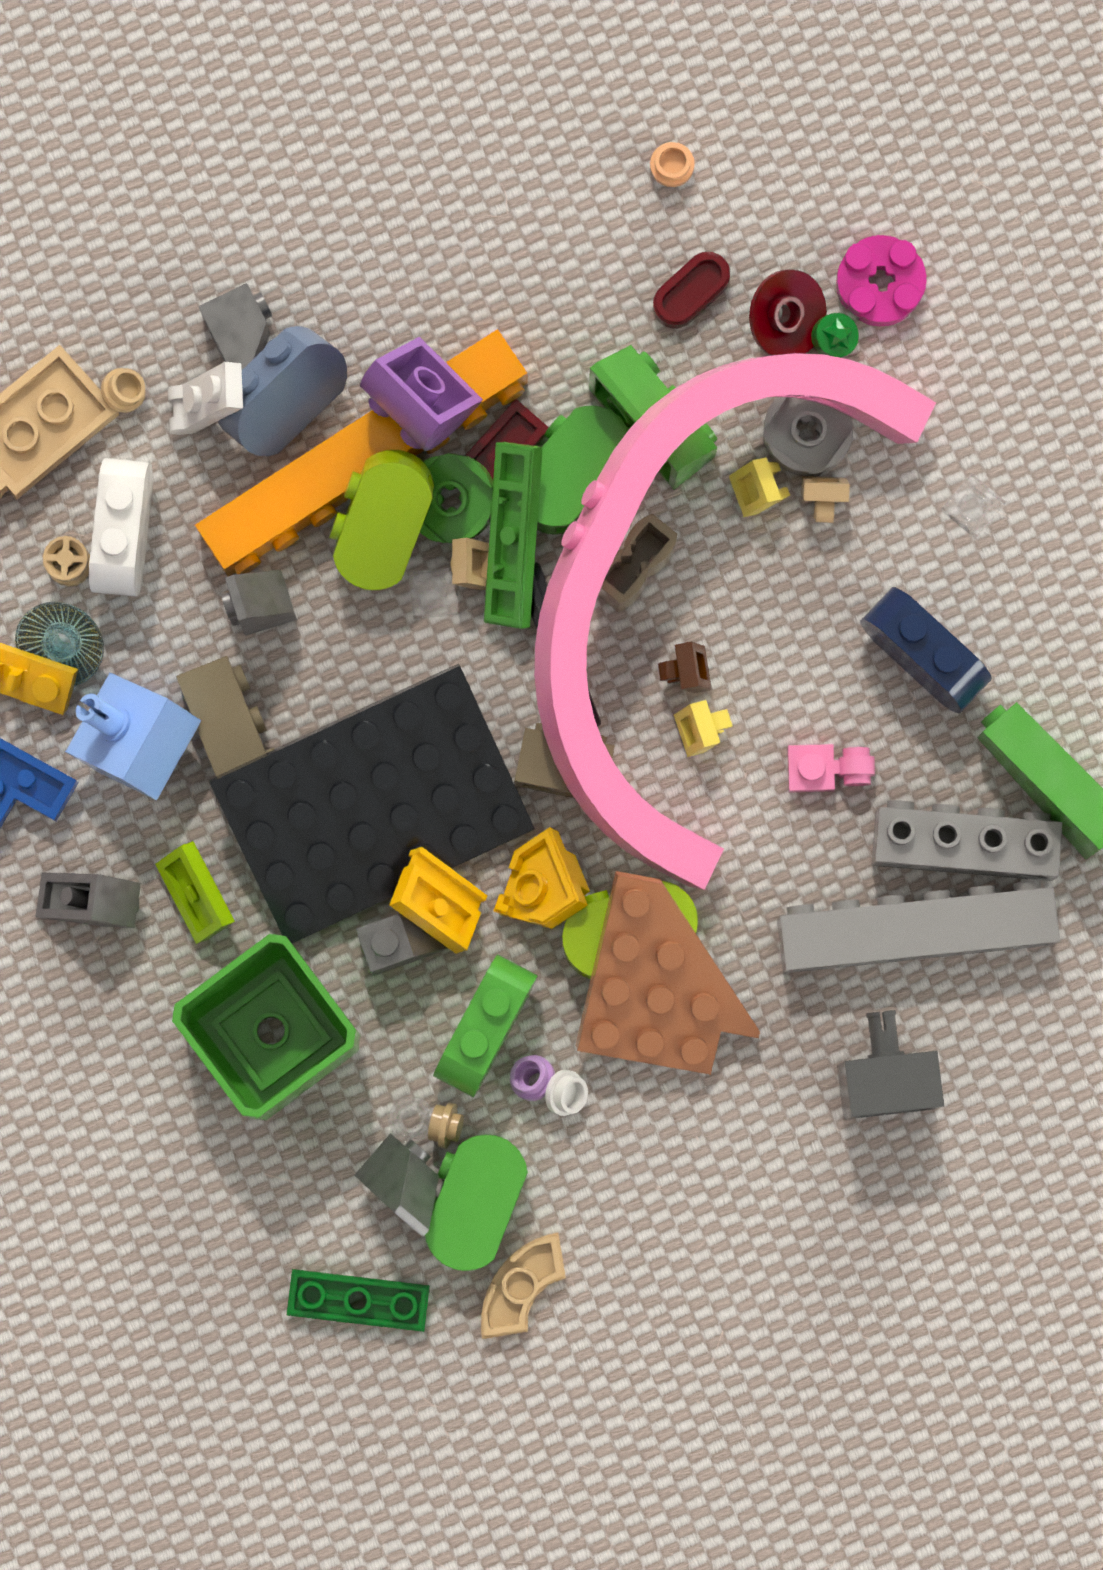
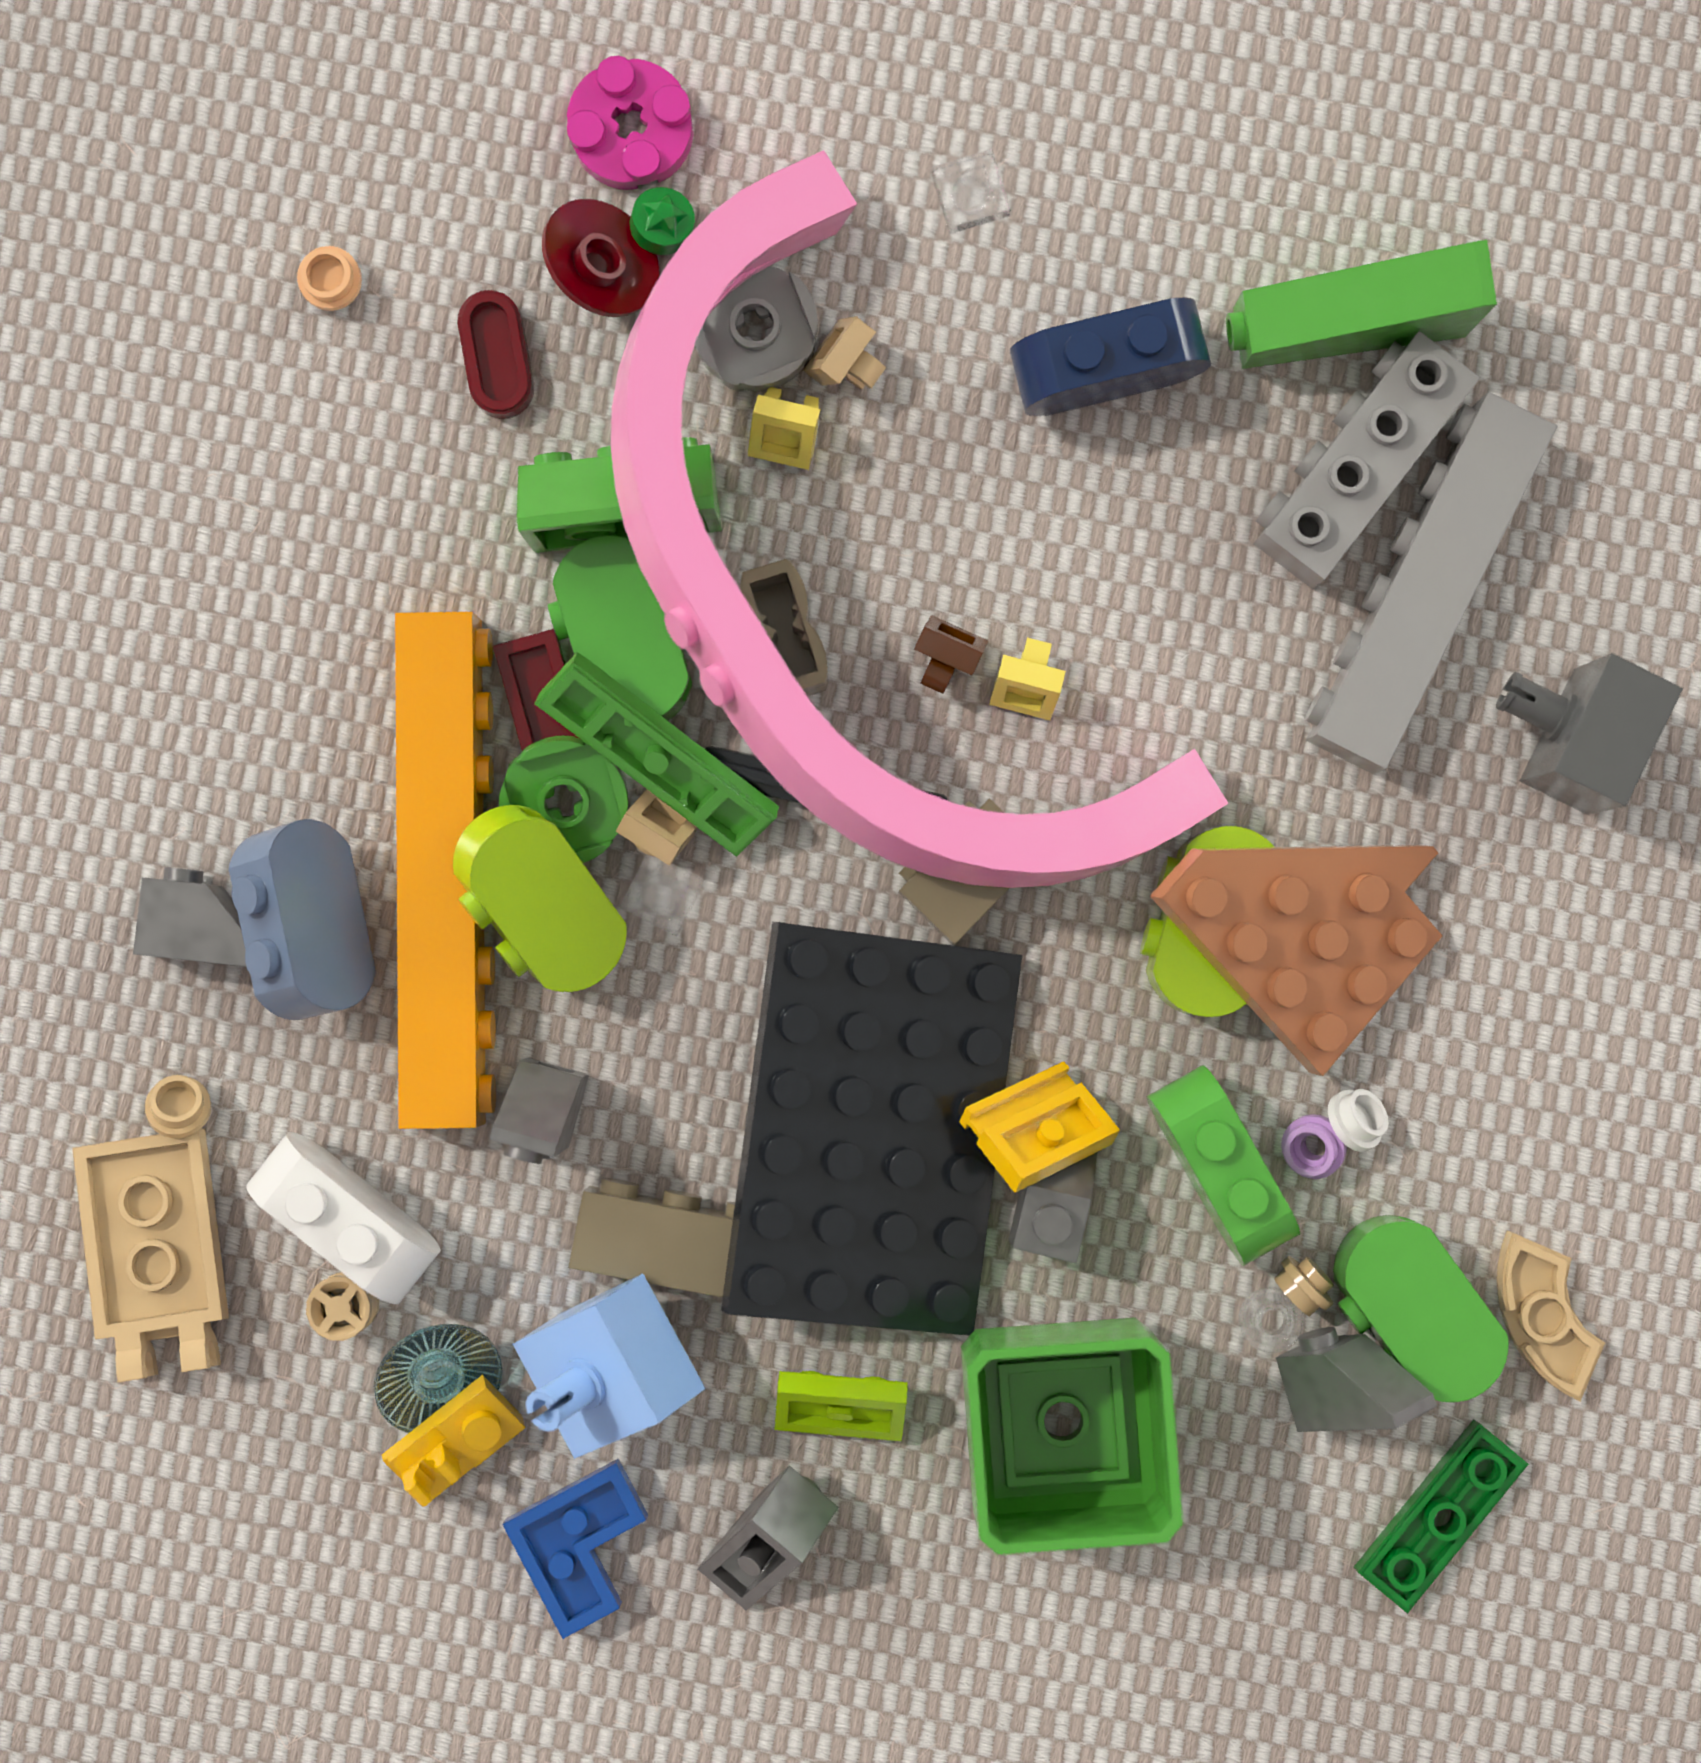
camera: 50 degrees left, 5 degrees up
(206, 399) = (253, 1017): white plate -> none
(419, 394) = (414, 758): medium lavender brick -> none
(543, 883) = (1095, 986): yellow plate -> none
(814, 768) = (1160, 578): bright pink plate -> none

